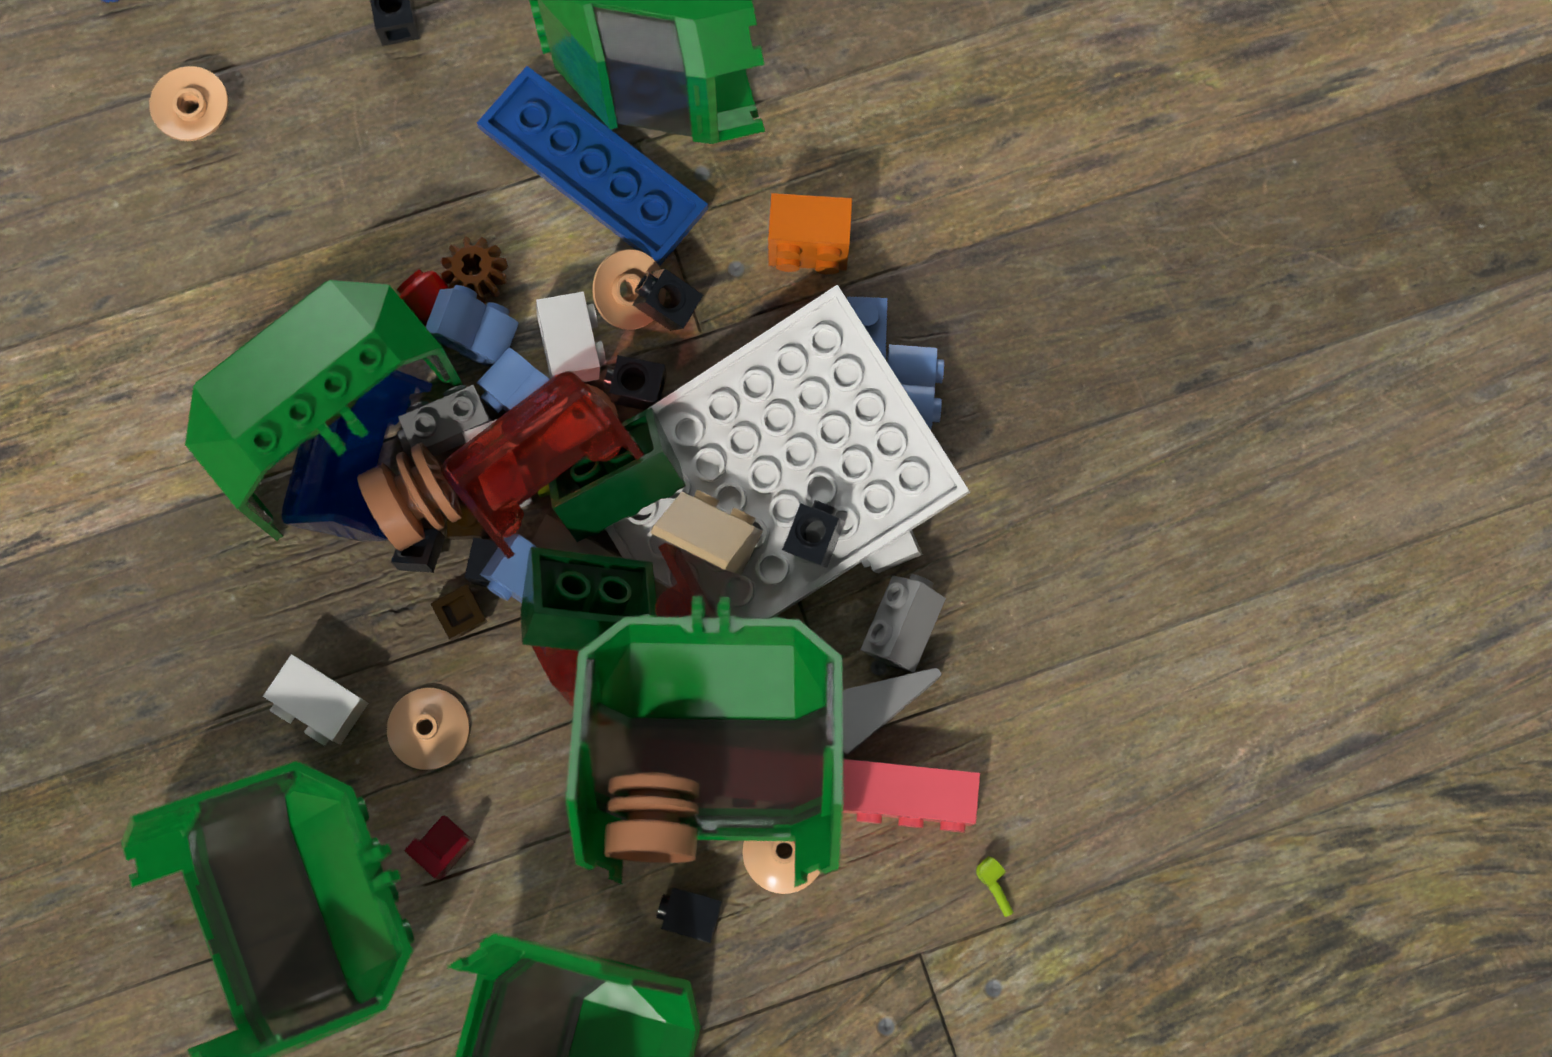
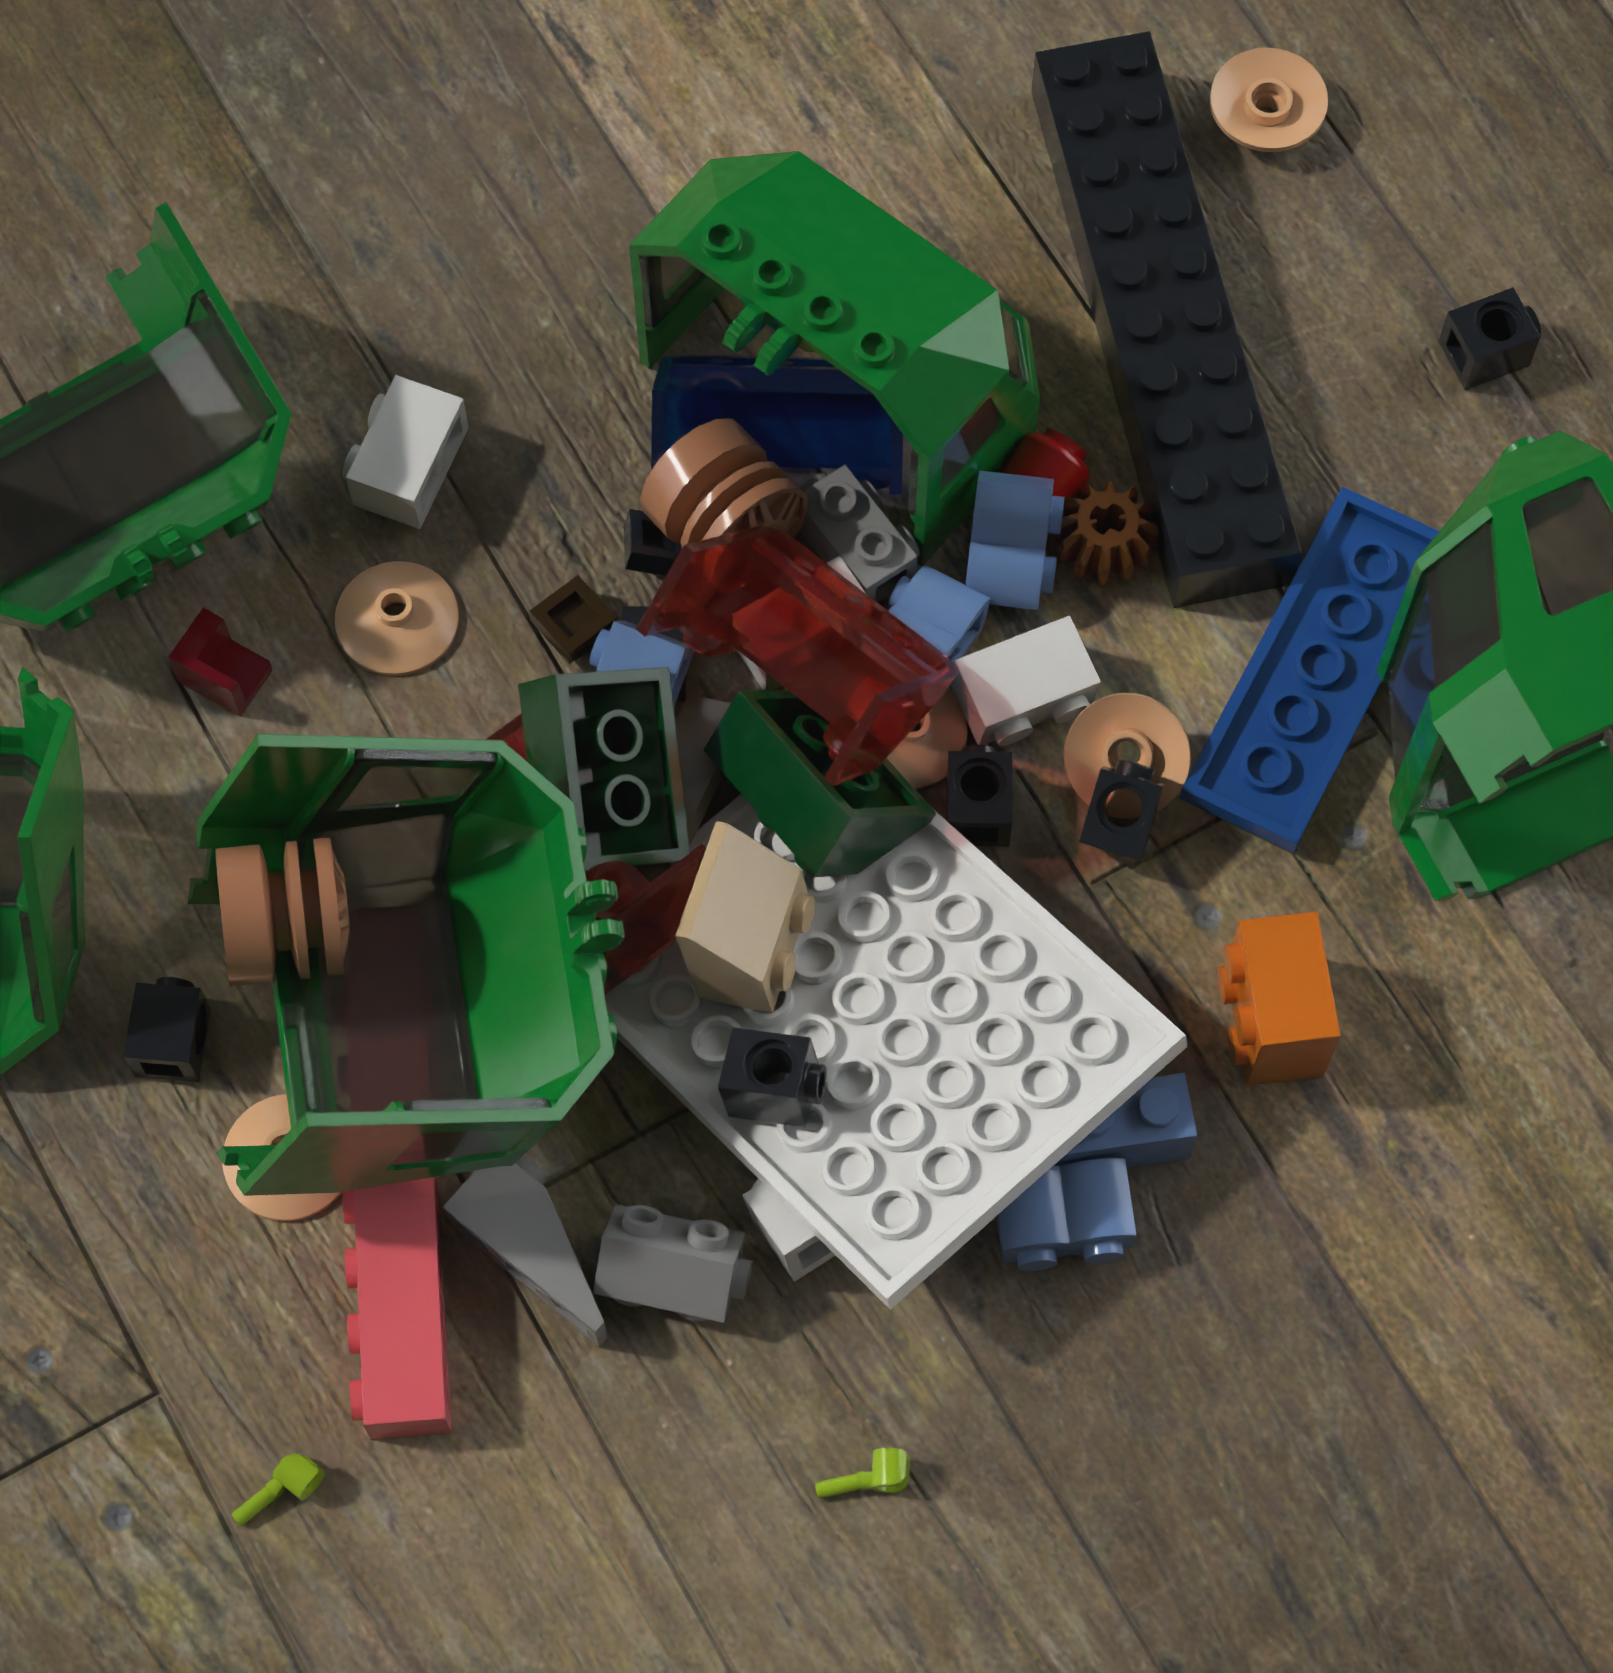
camera: 80 degrees right, 10 degrees down
(326, 202) = (1164, 321): none -> black brick
(1046, 521) = (888, 1475): none -> lime hand

